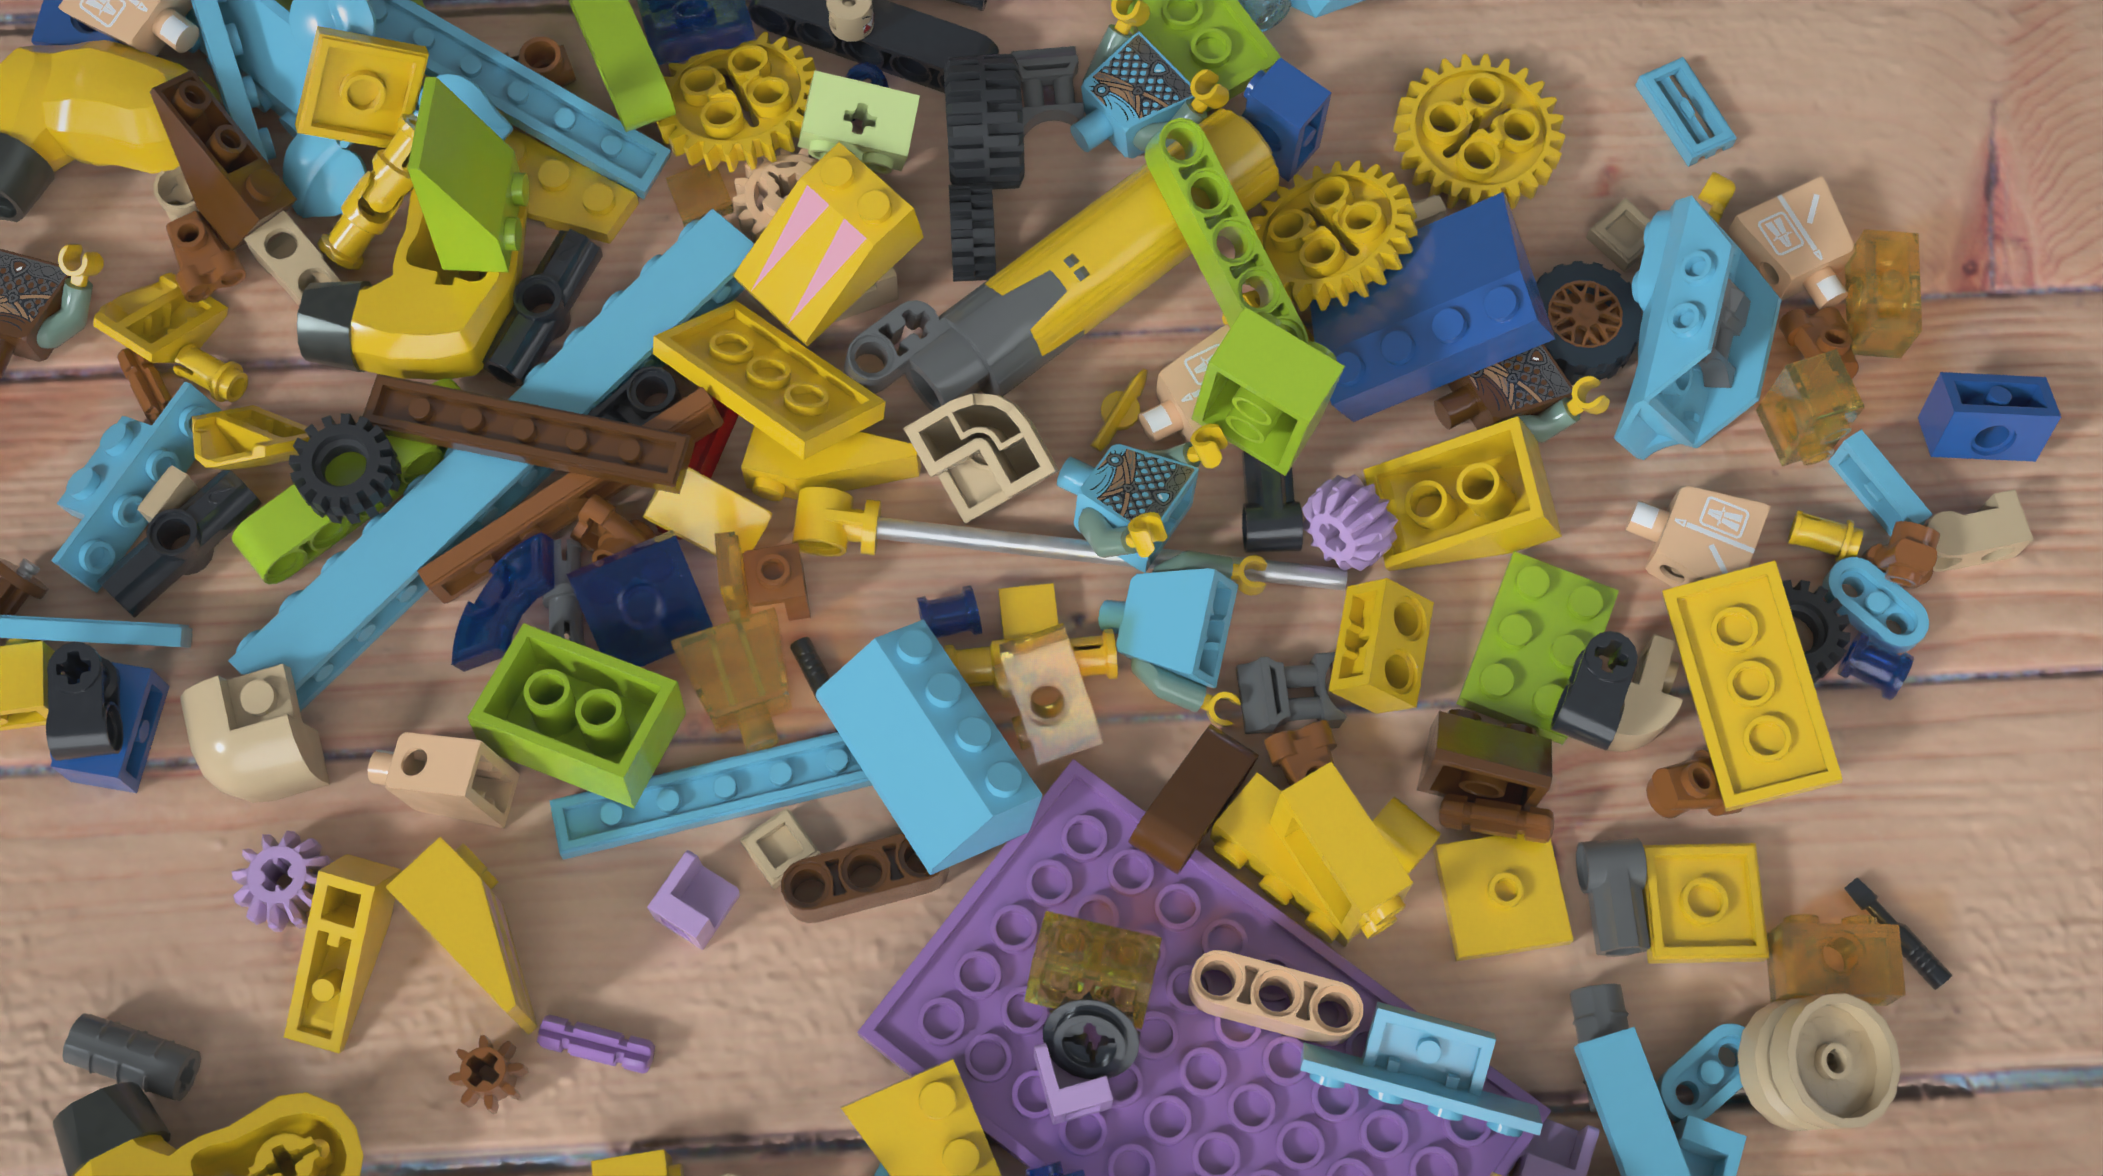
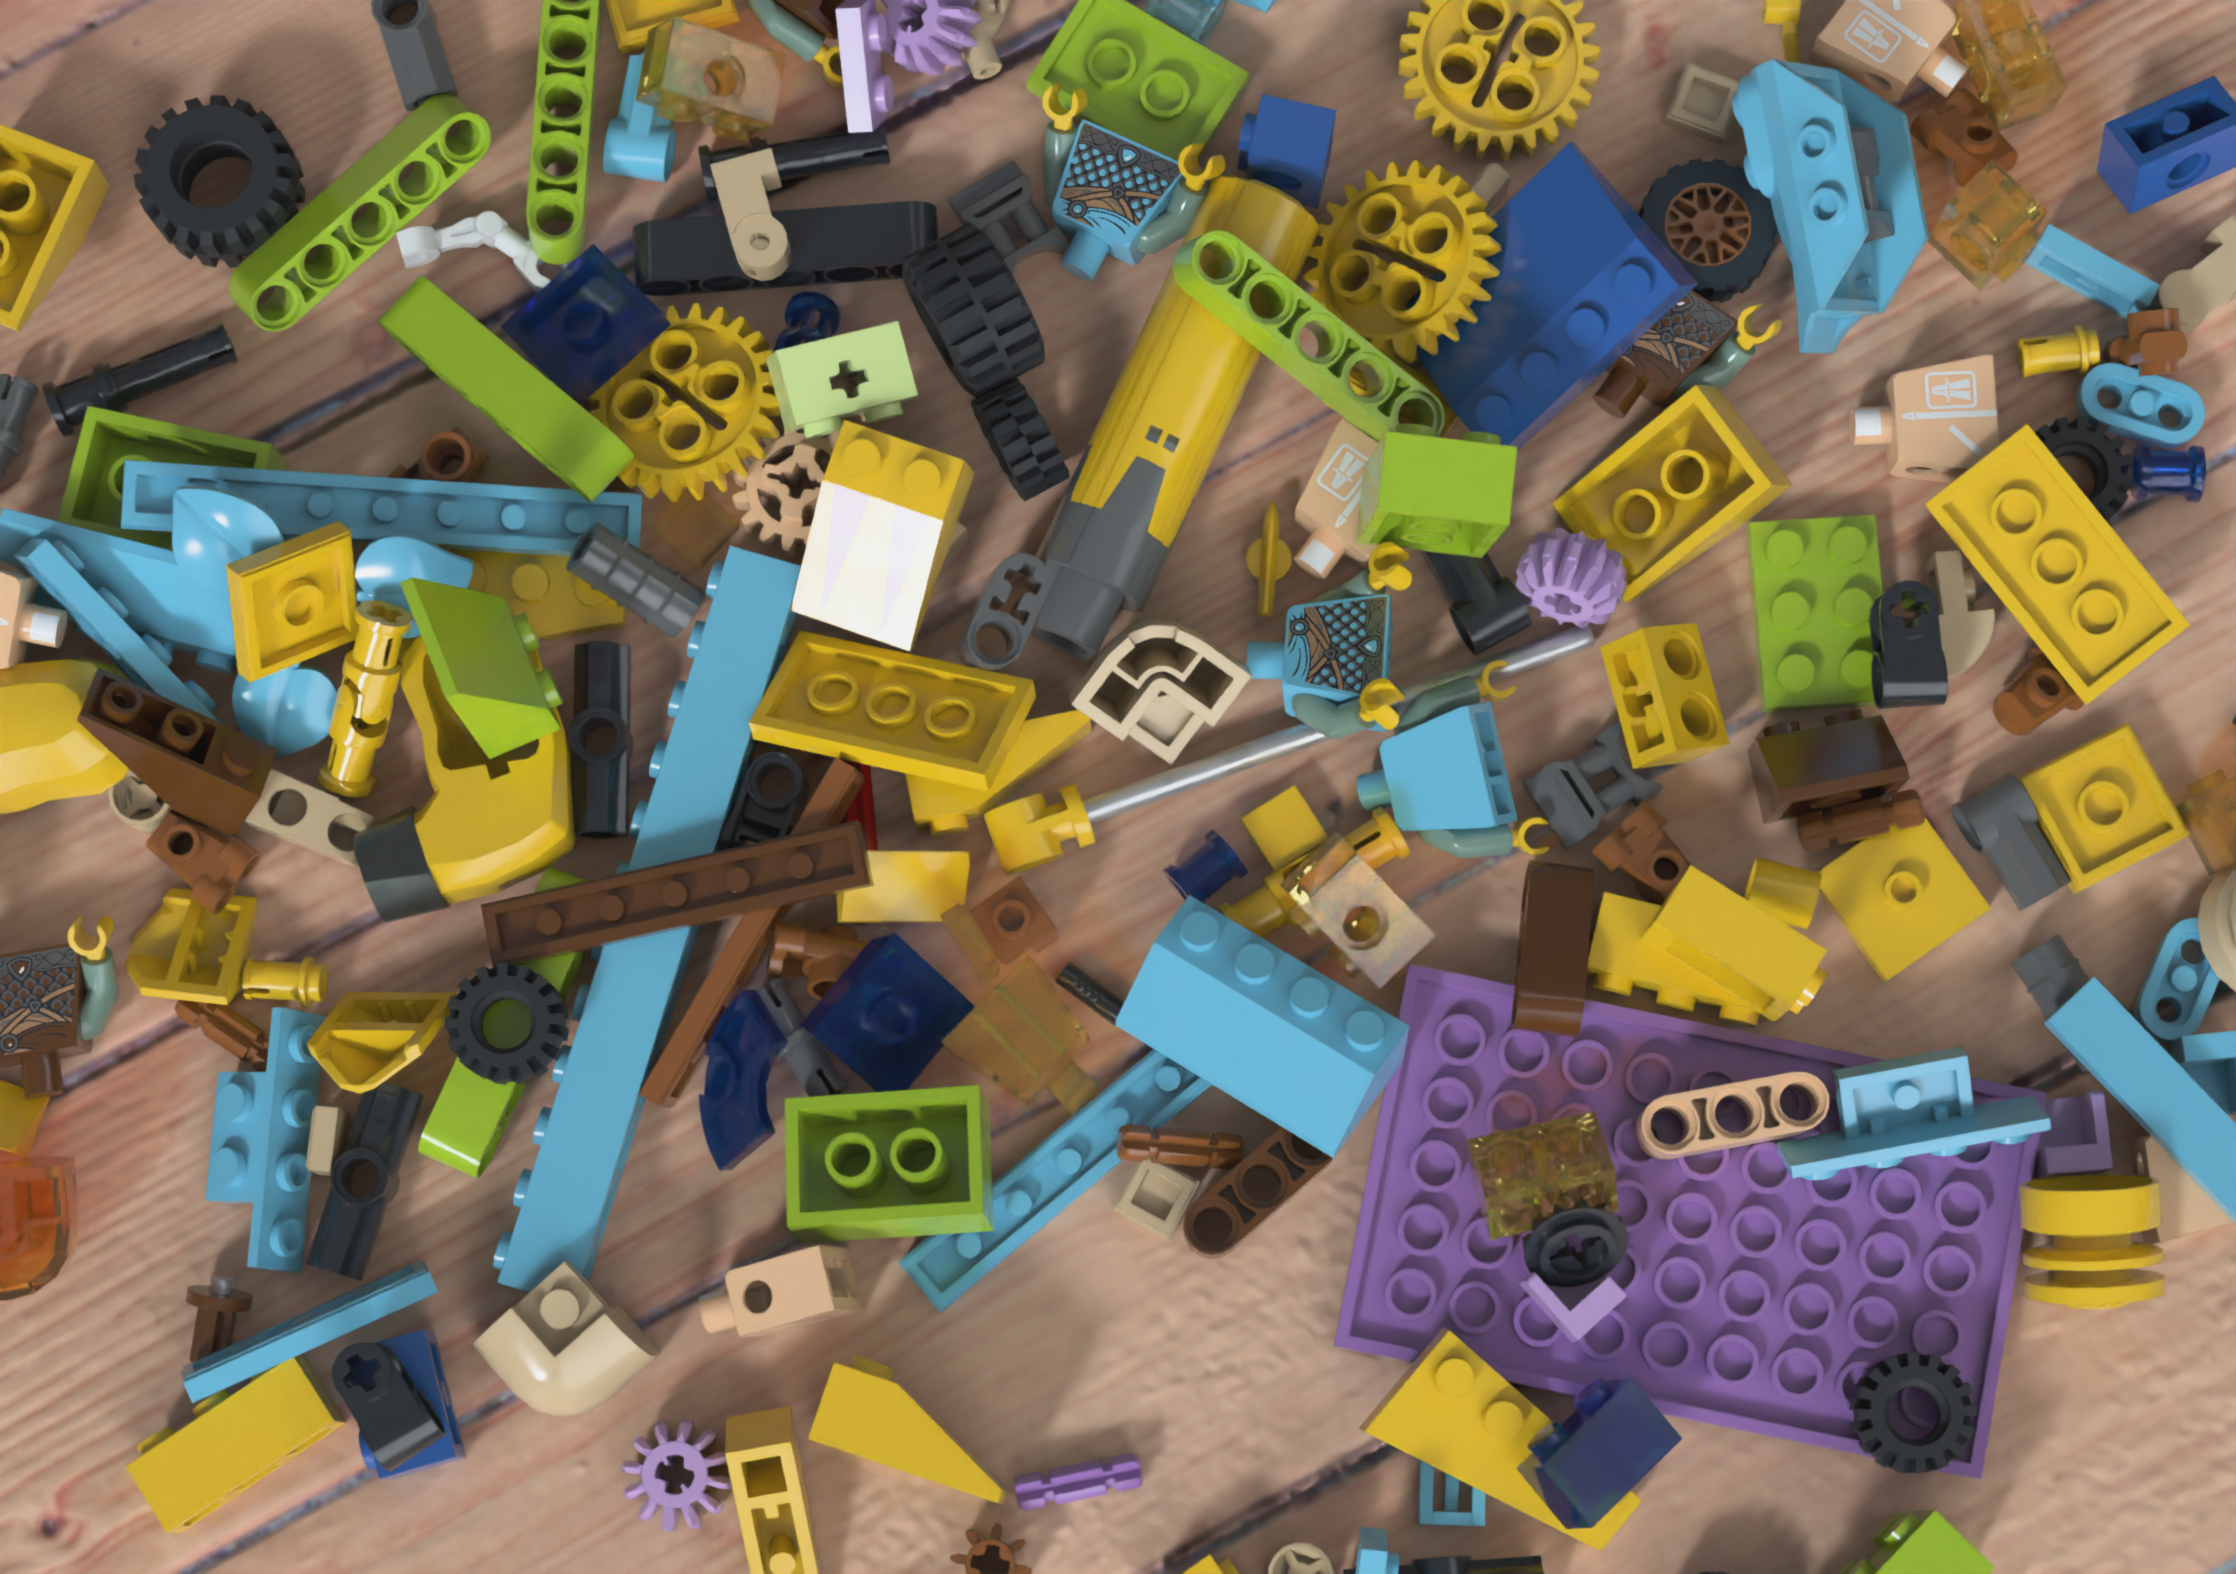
camera: 20 degrees left, 10 degrees up
(629, 202) = (634, 580): none -> dark grey axle
(693, 901) = (1101, 1293): lavender panel -> none
(814, 813) = (1179, 1146): none -> dark orange axle

